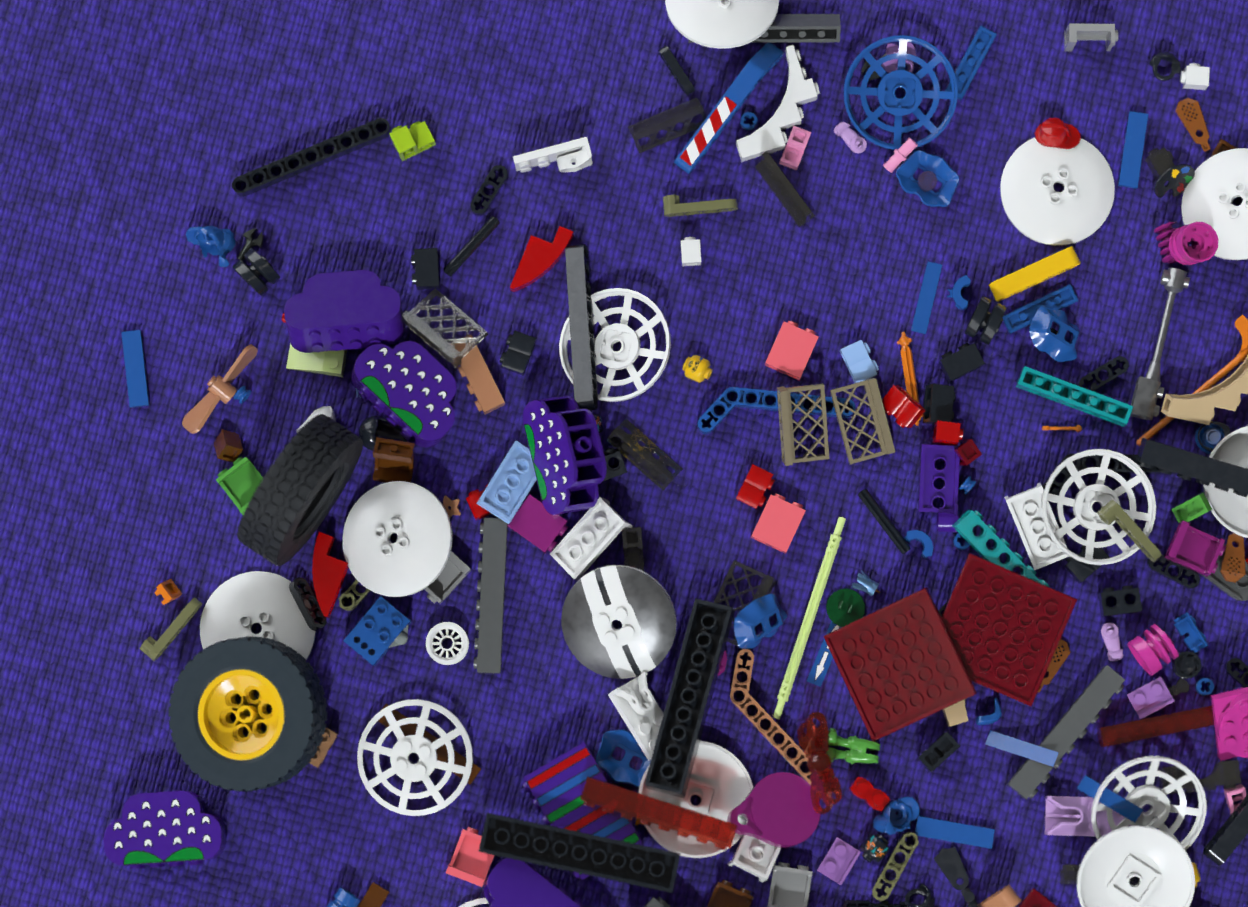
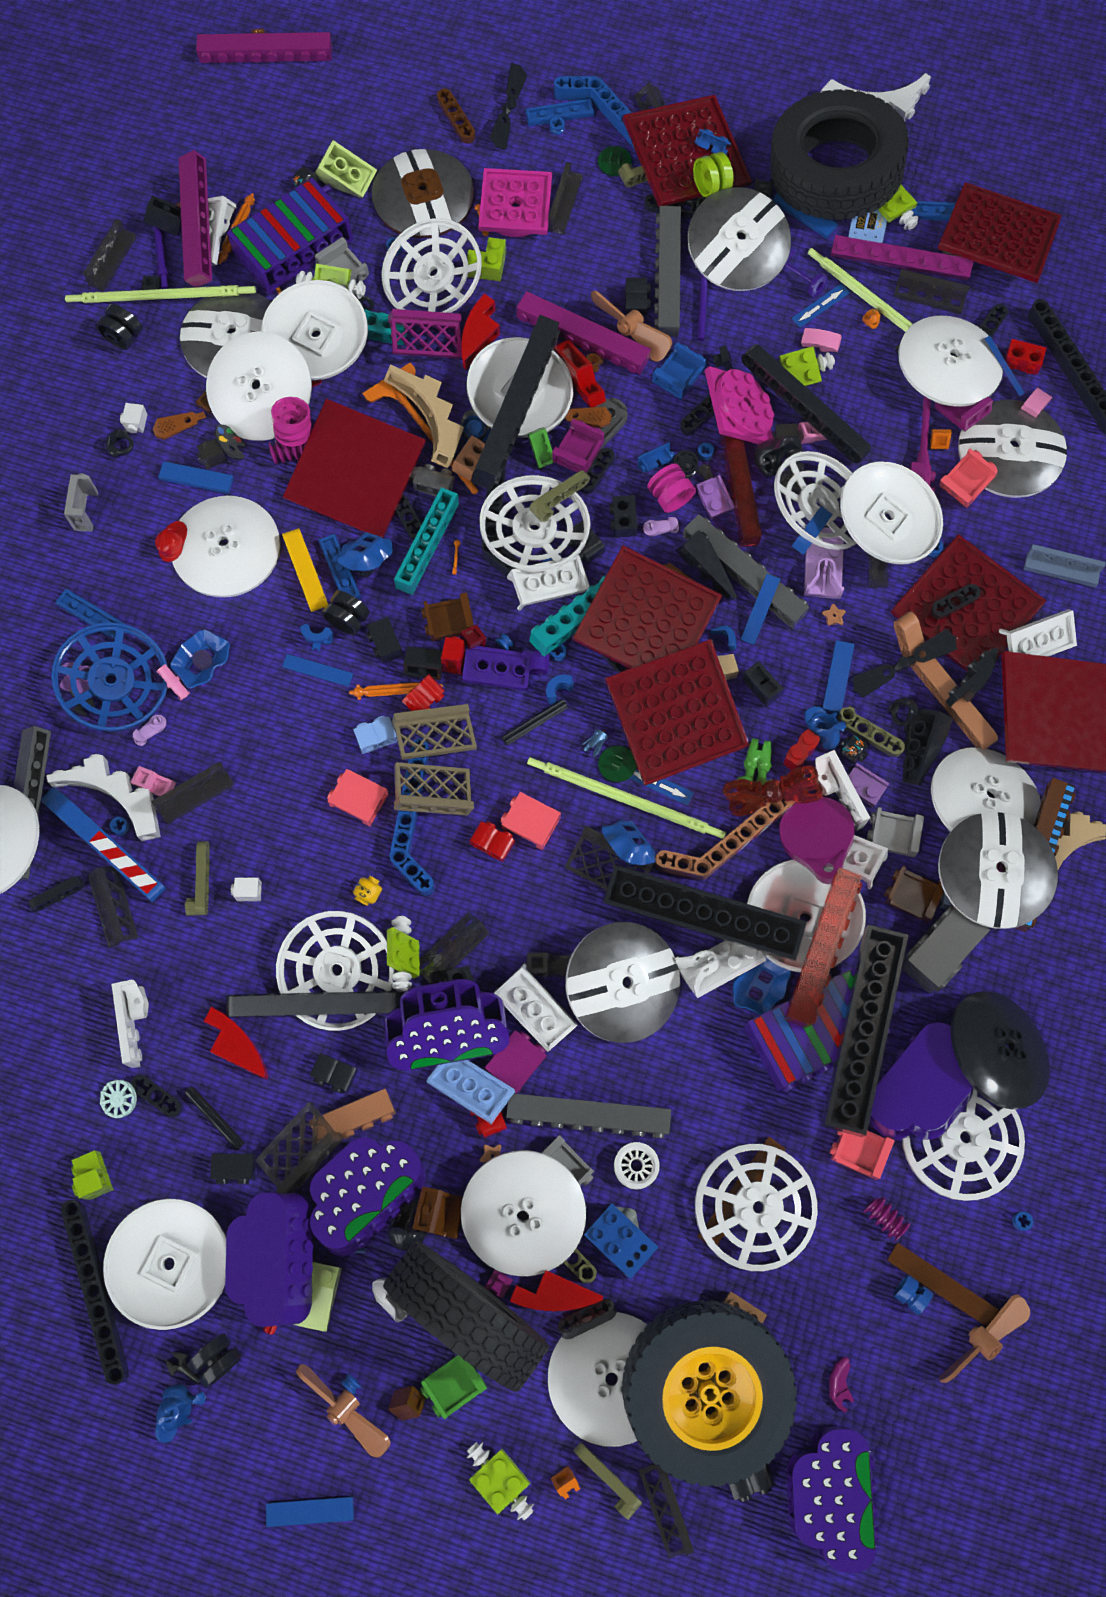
camera: 90 degrees left, 10 degrees down
(148, 689) = (674, 1508): none -> clear smoke fence
(166, 533) = (499, 1481): none -> lime plate
(175, 765) = (759, 1482): none -> black brick
(262, 836) = (837, 1383): none -> magenta piece
(333, 192) = (136, 1259): none -> white dish
(335, 521) = (498, 1283): none -> magenta tile
(410, 880) = (887, 1217): none -> magenta piece
(484, 155) = (118, 1099): none -> light aqua wheel
(634, 407) = (402, 953): none -> lime plate
(849, 820) = (835, 779): none -> white plate
(991, 425) = (447, 617): none -> reddish brown panel
(1022, 822) = (834, 620): none -> nougat plate
(1077, 682) = (700, 553): none -> black wedge
(1150, 314) = (354, 468): none -> dark red tile
(1174, 433) = (468, 457): none -> nougat brick
(1203, 755) = (770, 453): none -> black piece

